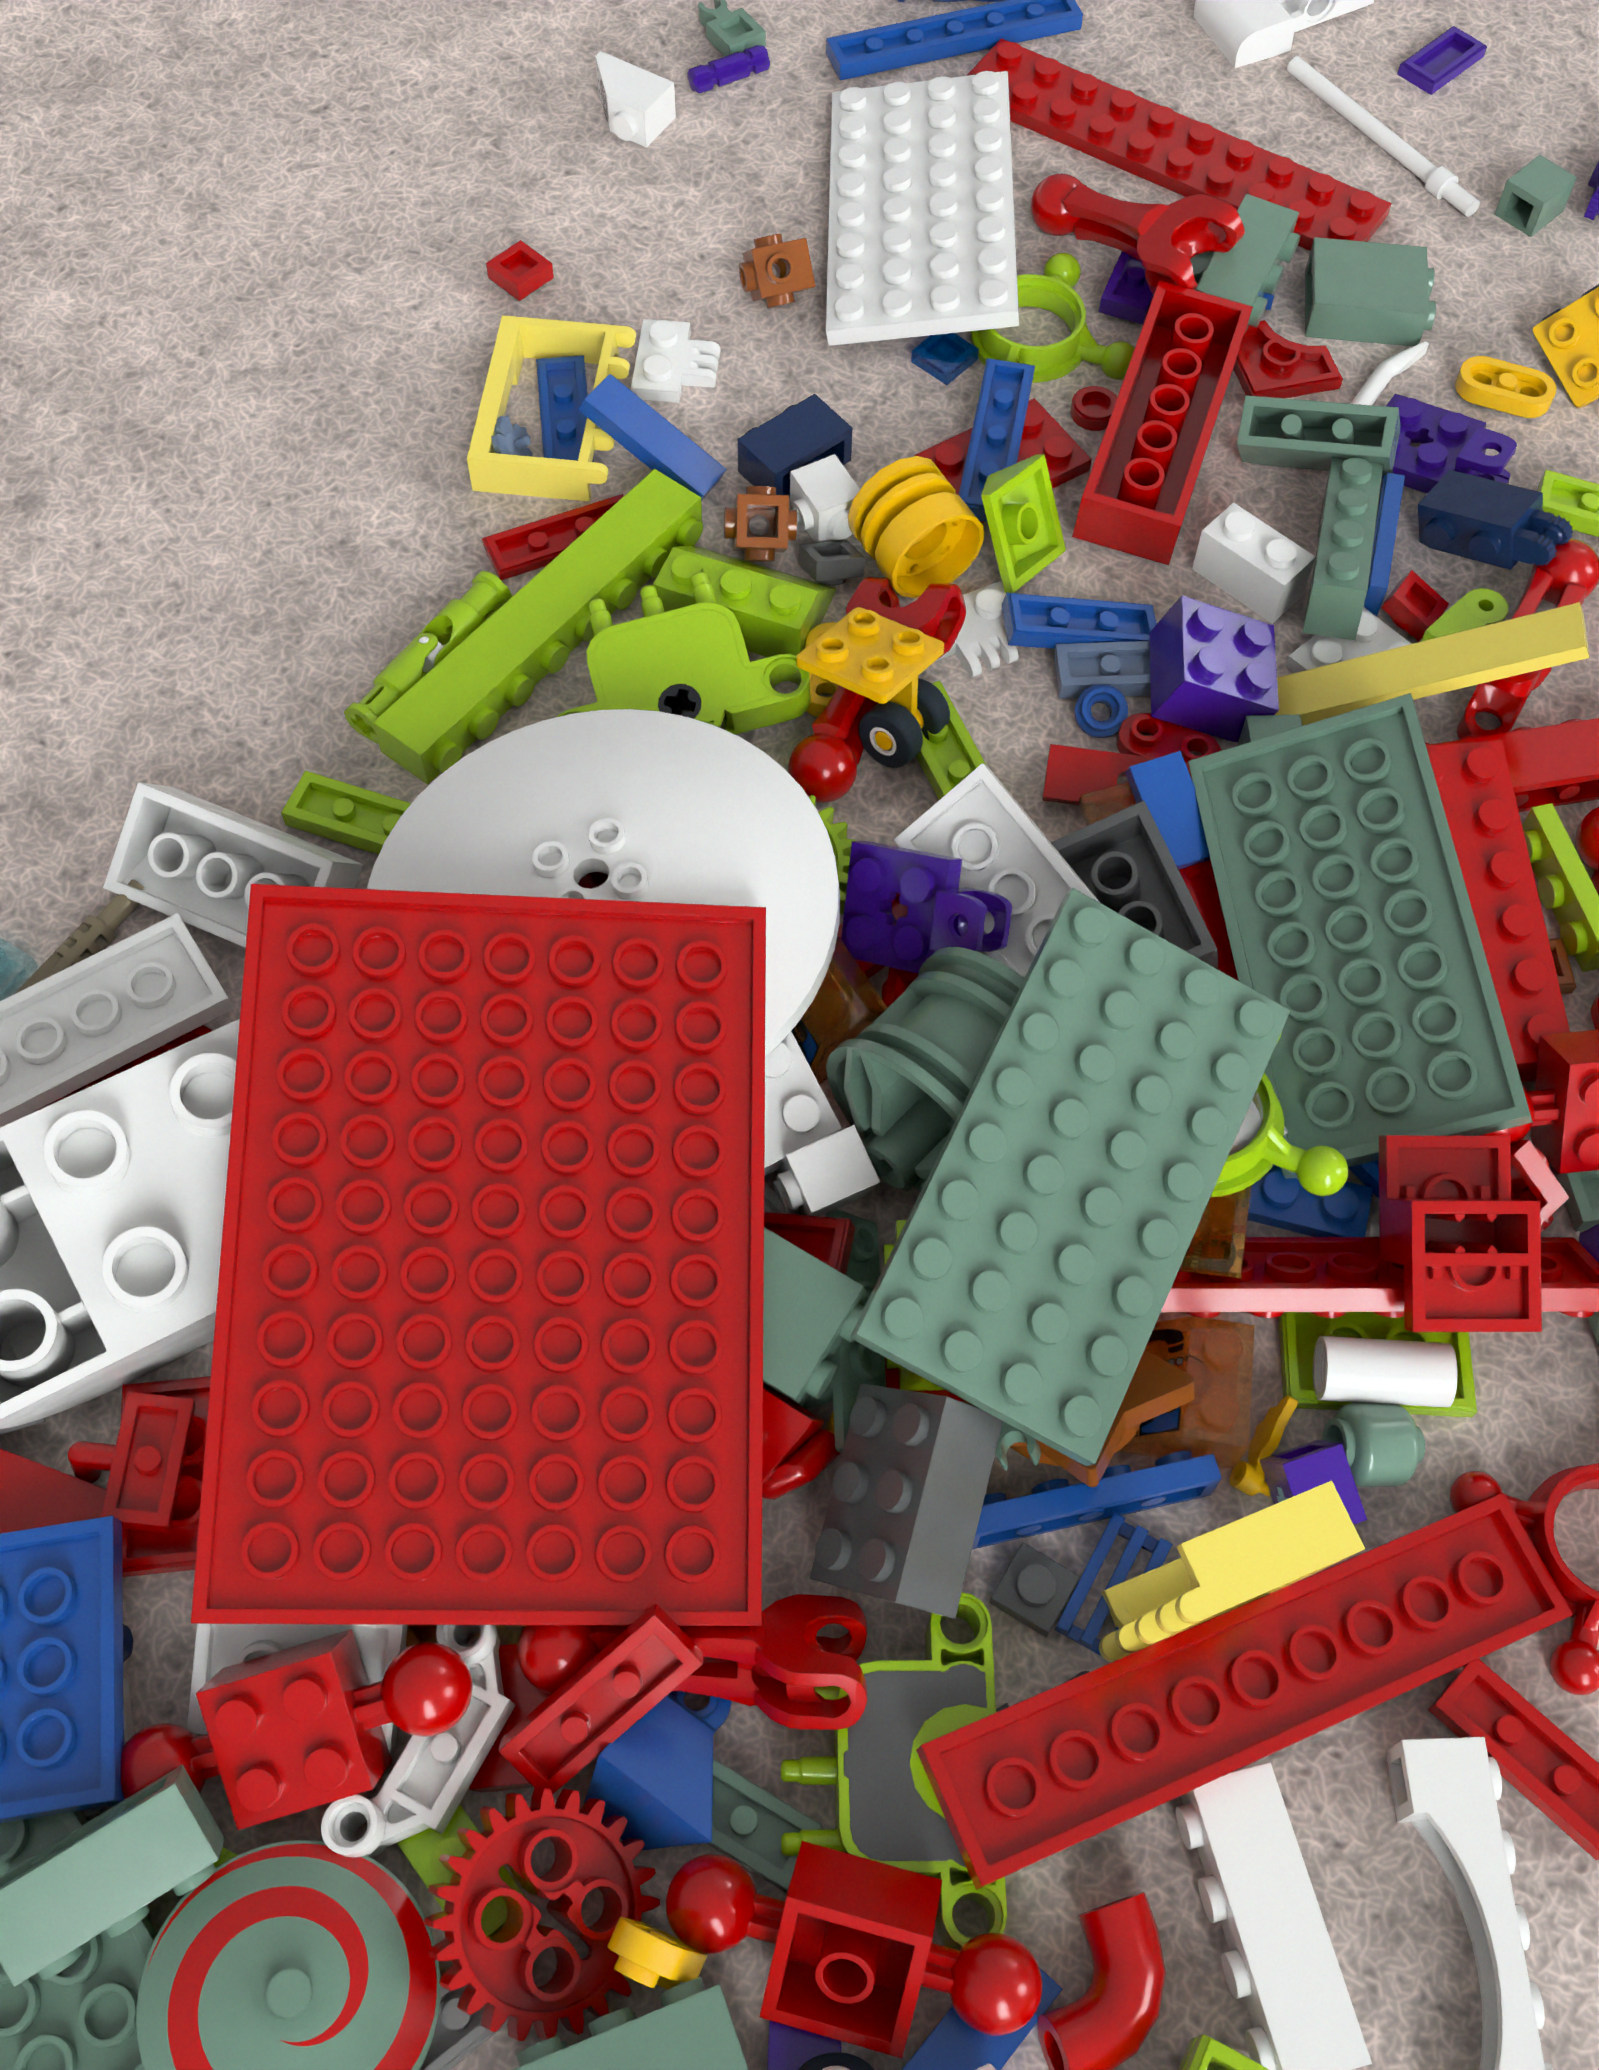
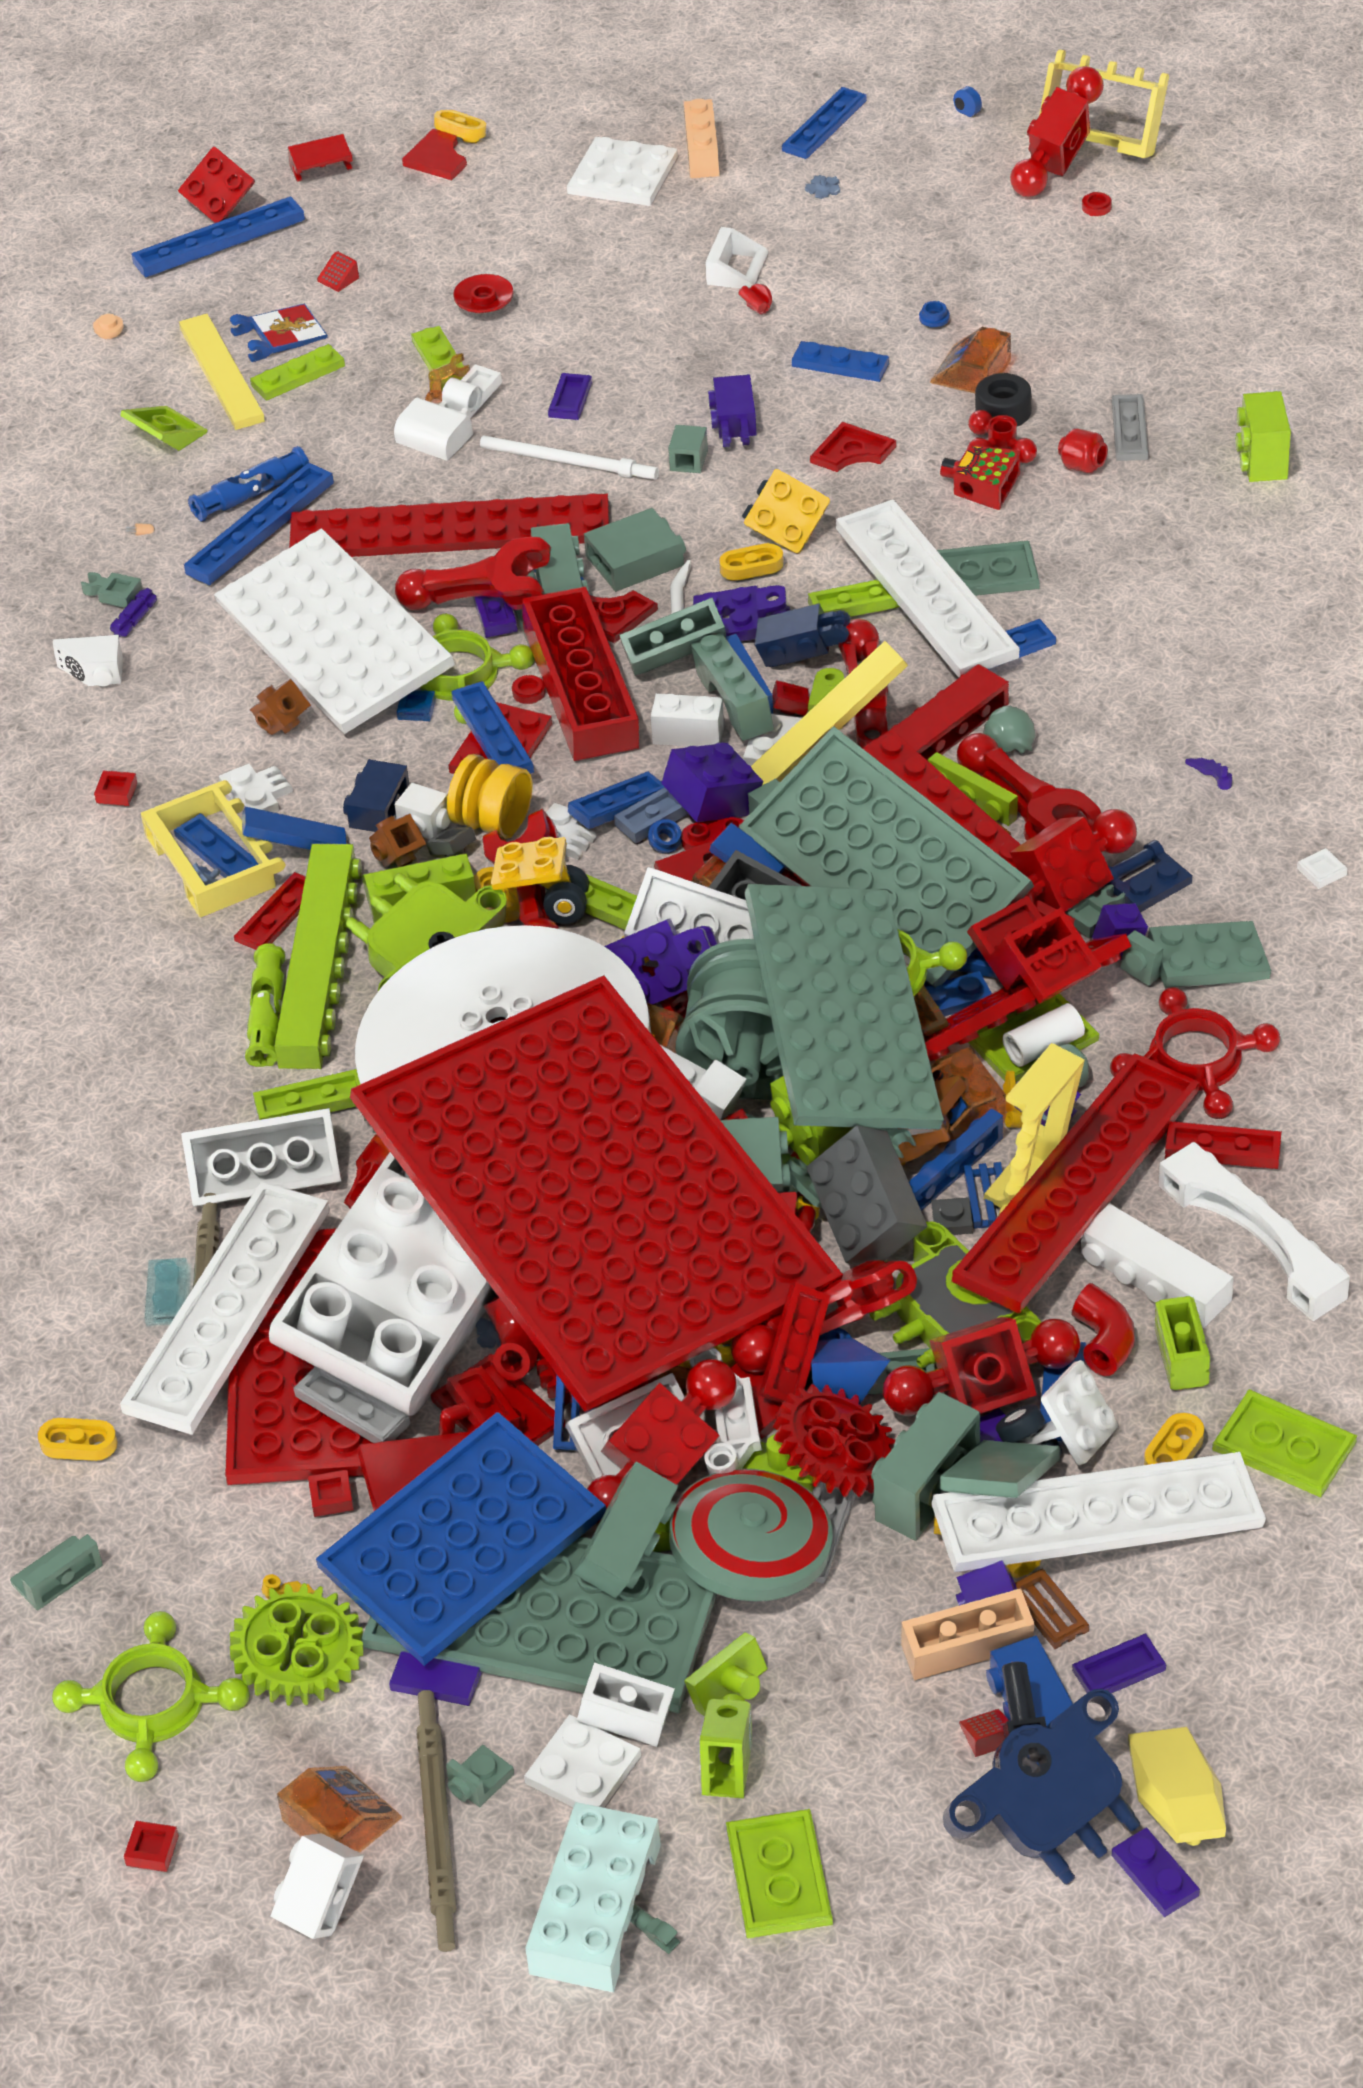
camera: 30 degrees left, 15 degrees down
(653, 1955) = (897, 1408): yellow plate -> none
(1022, 520) = (546, 762): lime slope -> none

